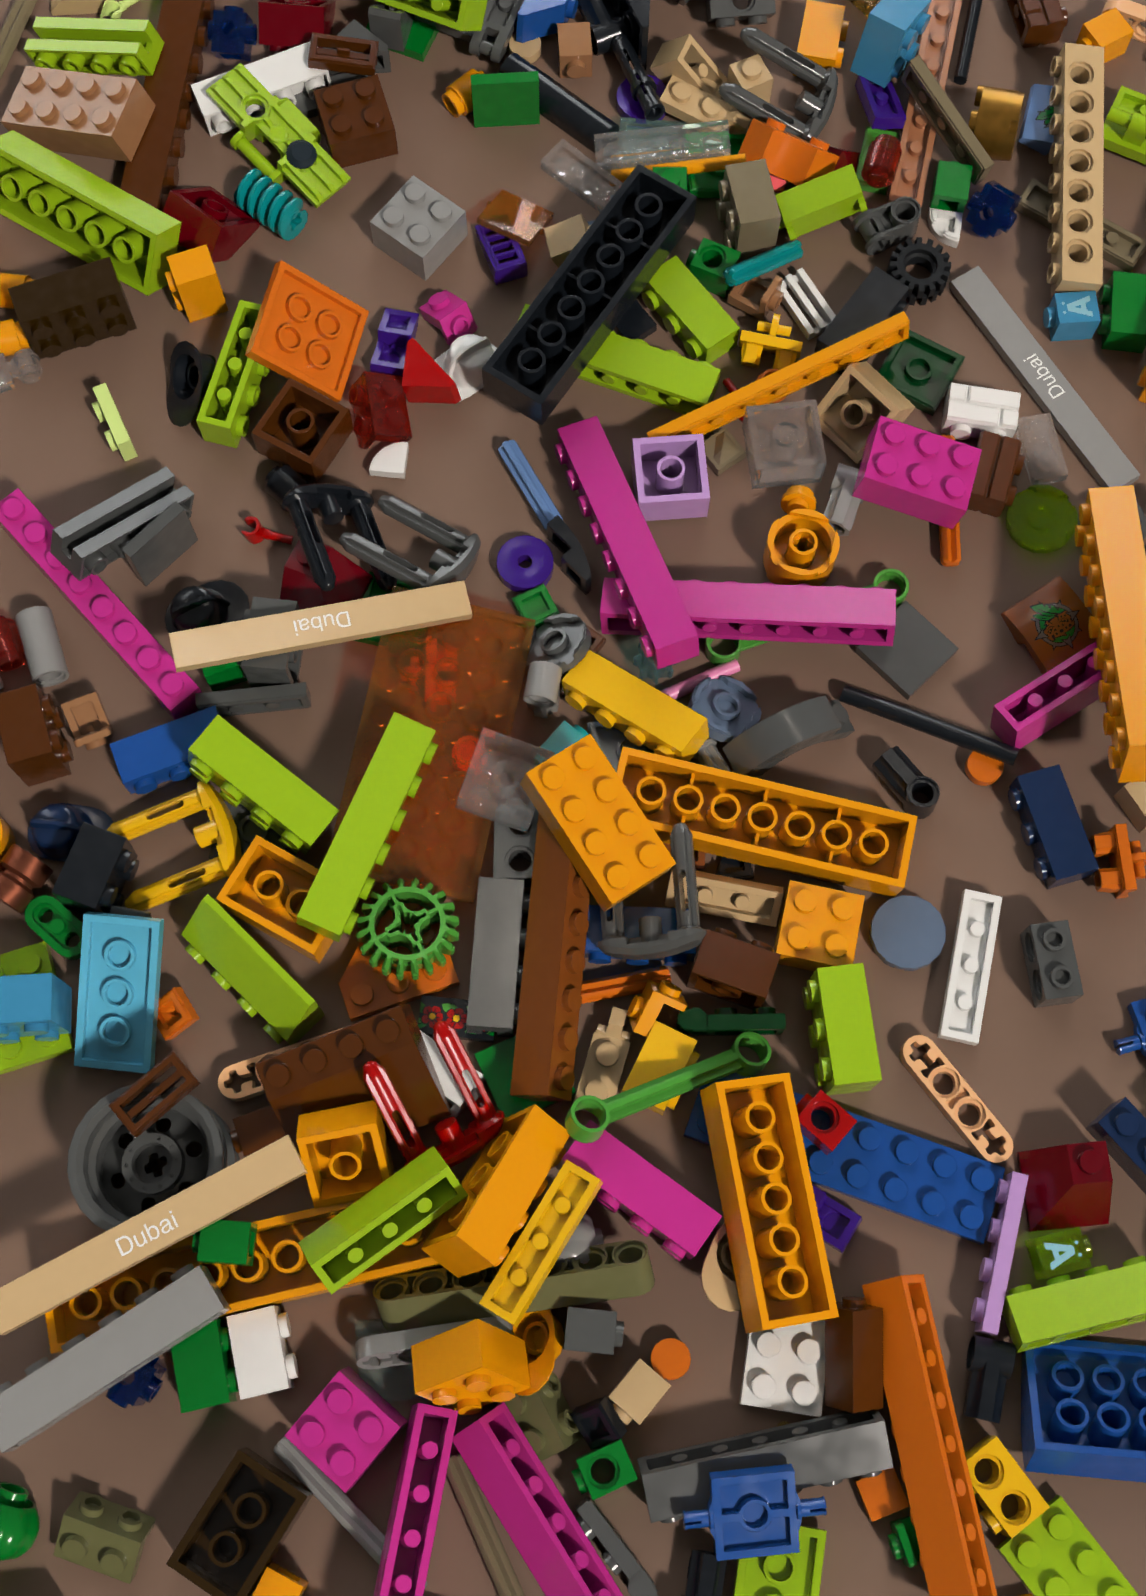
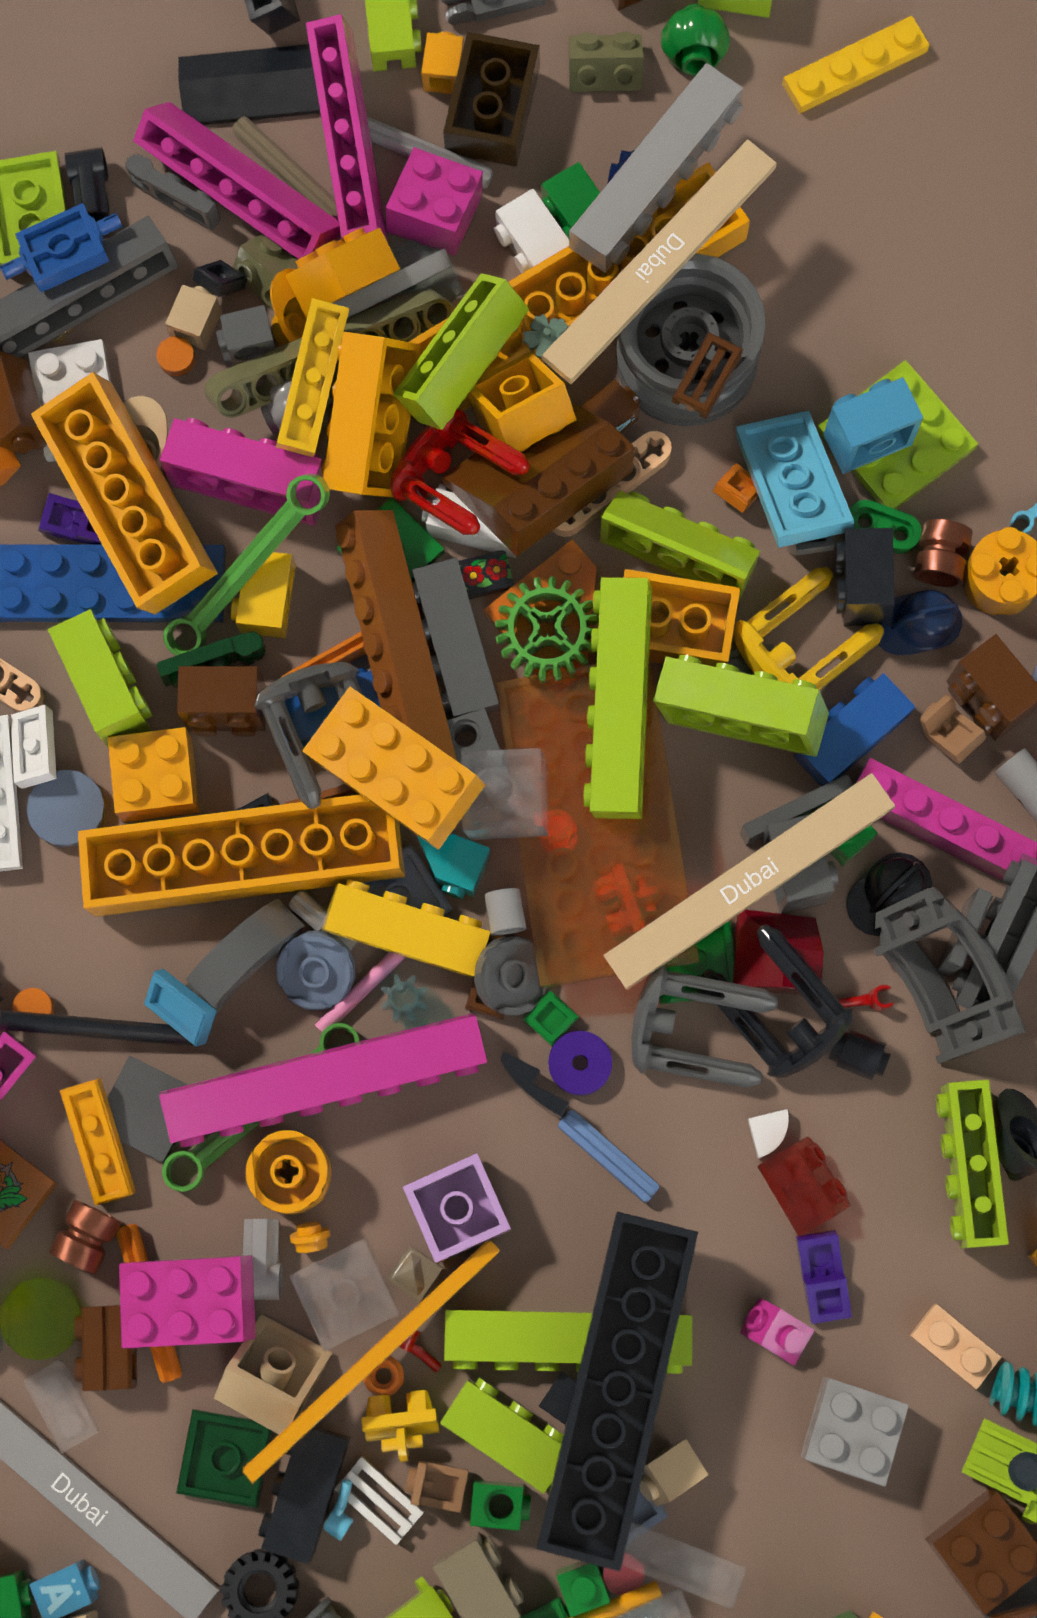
camera: 165 degrees right, 5 degrees up
(207, 553) = (954, 1031): none -> dark grey wedge
(226, 1243) = (587, 283): green brick -> none
(292, 1215) = (543, 333): none -> sand green plant
(303, 430) = (874, 1121): reddish brown brick -> none
(307, 331) = (919, 1237): orange plate -> none
(314, 260) = (955, 1346): none -> light nougat plate
(425, 380) = (771, 1240): red slope -> none
(465, 362) = (734, 1275): white piece -> none
(507, 270) = (727, 1420): dark purple slope -> none
(515, 218) = (750, 1490): clear orange piece -> none
(605, 1058) = (319, 582): tan hinge -> none
(622, 1476) = (198, 233): green brick -> none
(627, 544) = (477, 1107): dark pink brick -> none
(646, 1008) = (291, 648): light orange bracket -> none
(733, 898) = (243, 779): tan plate -> none
(763, 263) = (440, 1525): teal axle -> none
(839, 296) = (338, 1522): none -> medium azure hand
(840, 1121) = (87, 574): red brick -> none
(854, 714) = (180, 1007): none -> dark azure tile
(906, 779) = (109, 959): black piece -> none
(923, 995) = (33, 746): none -> white plate
(956, 633) = (98, 1141): none -> light orange tile
(975, 409) = (139, 1420): white brick -> none
(990, 557) = (84, 1239): none -> copper wheel

